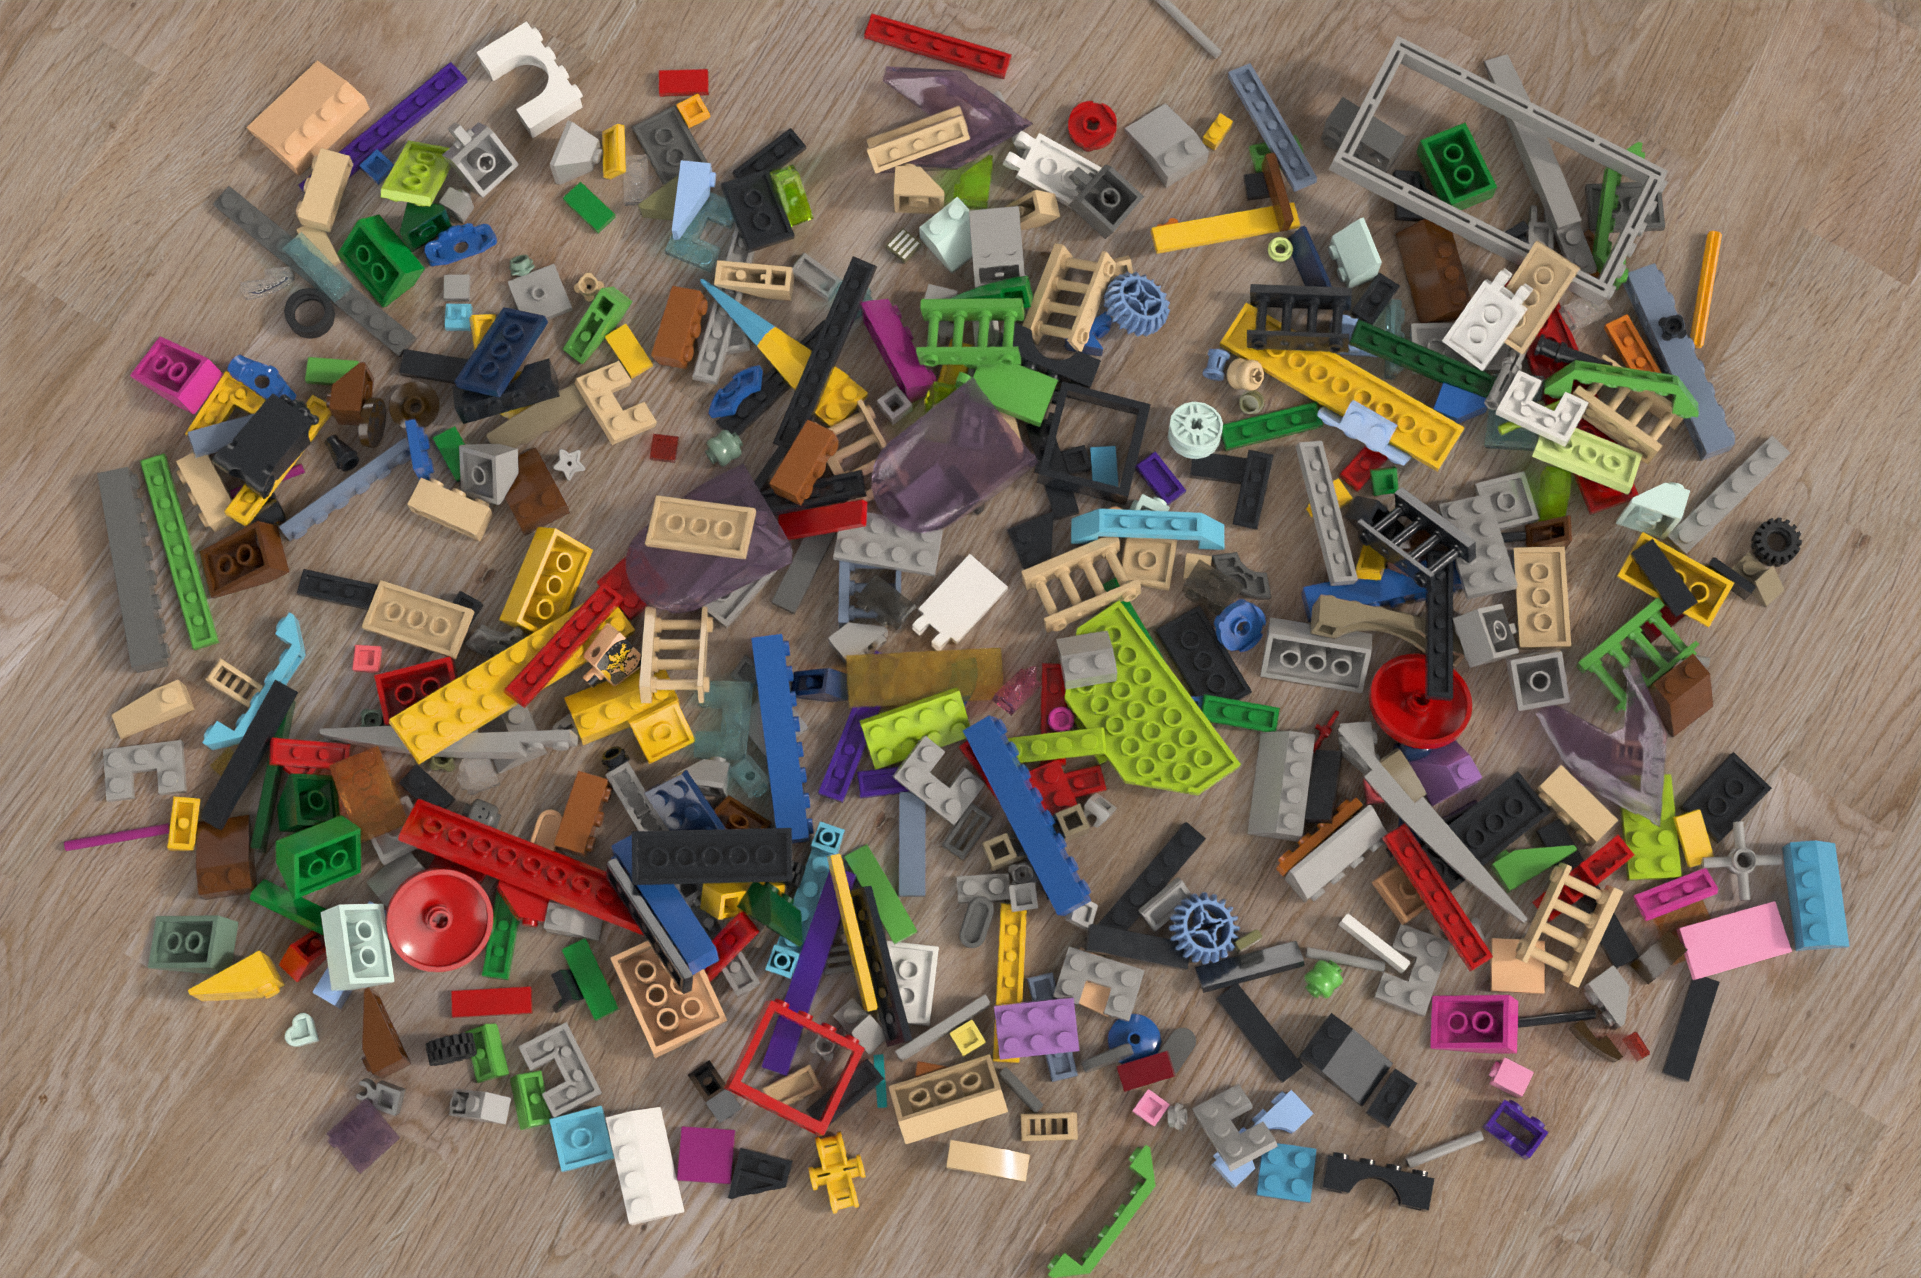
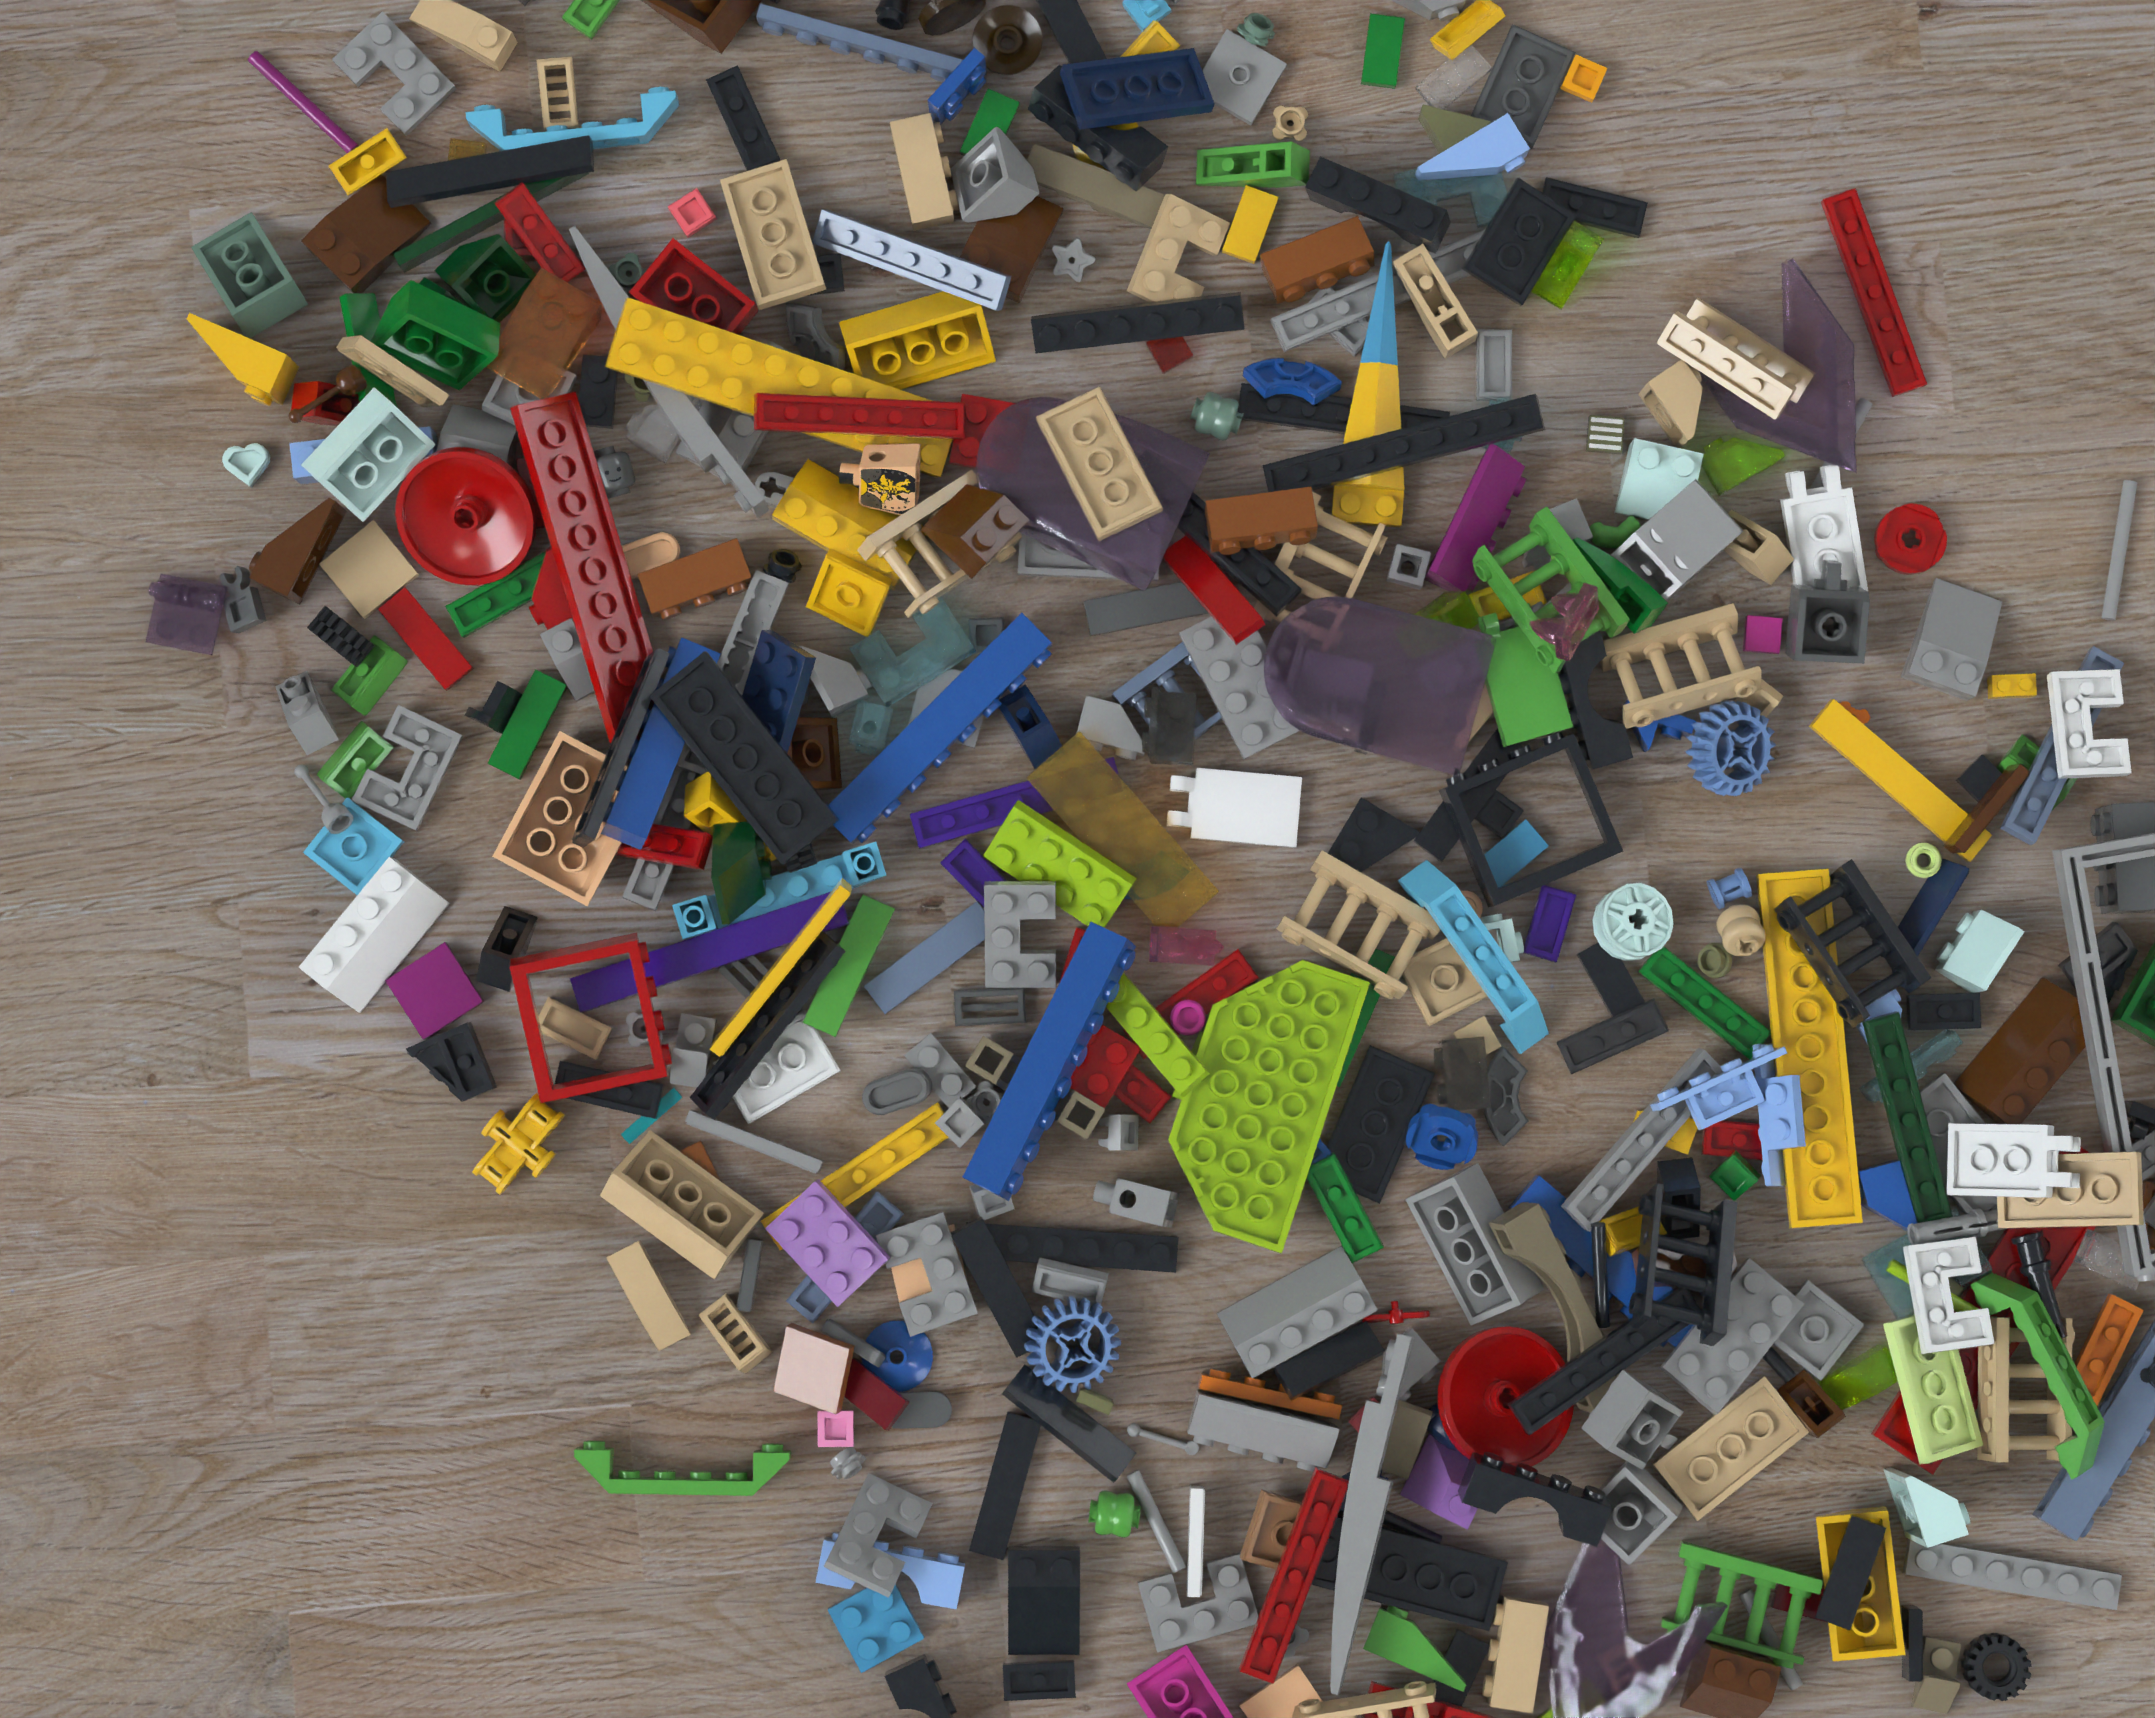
camera: 50 degrees right, 10 degrees up
(304, 928) = (348, 382): none -> reddish brown hinge
(319, 897) = (392, 371): none -> tan tile
(423, 1005) = (369, 569): none -> tan tile
(497, 549) = (911, 259): none -> plate
(556, 1134) = (335, 815): none -> light grey hinge
(635, 452) = (1138, 322): none -> black plate
(681, 625) = (975, 527): none -> reddish brown slope
(683, 82) = (1610, 41): red tile -> none
(694, 257) = (1397, 210): none -> black arch
(769, 470) = (1230, 486): black tile -> none
(966, 281) = (1612, 536): none -> bright green arm
(967, 1038) = (764, 1175): light yellow plate -> none
(1003, 334) = (1578, 614): none -> clear pink tile
(1084, 243) = (1762, 634): none -> dark pink tile
(1087, 660) = (1273, 996): light grey slope -> none
(1105, 1092) = (813, 1368): none -> tile
(1157, 820) = (1151, 1204): none -> light grey torso
(1251, 103) = (2070, 704): none -> white plate
(1316, 907) = (1190, 1447): none -> light grey hinge
(1333, 449) = (1723, 1094): none -> light blue bracket
(1386, 592) = (1600, 1274): none -> black bar
(1467, 740) = (1493, 1483): none -> black arch

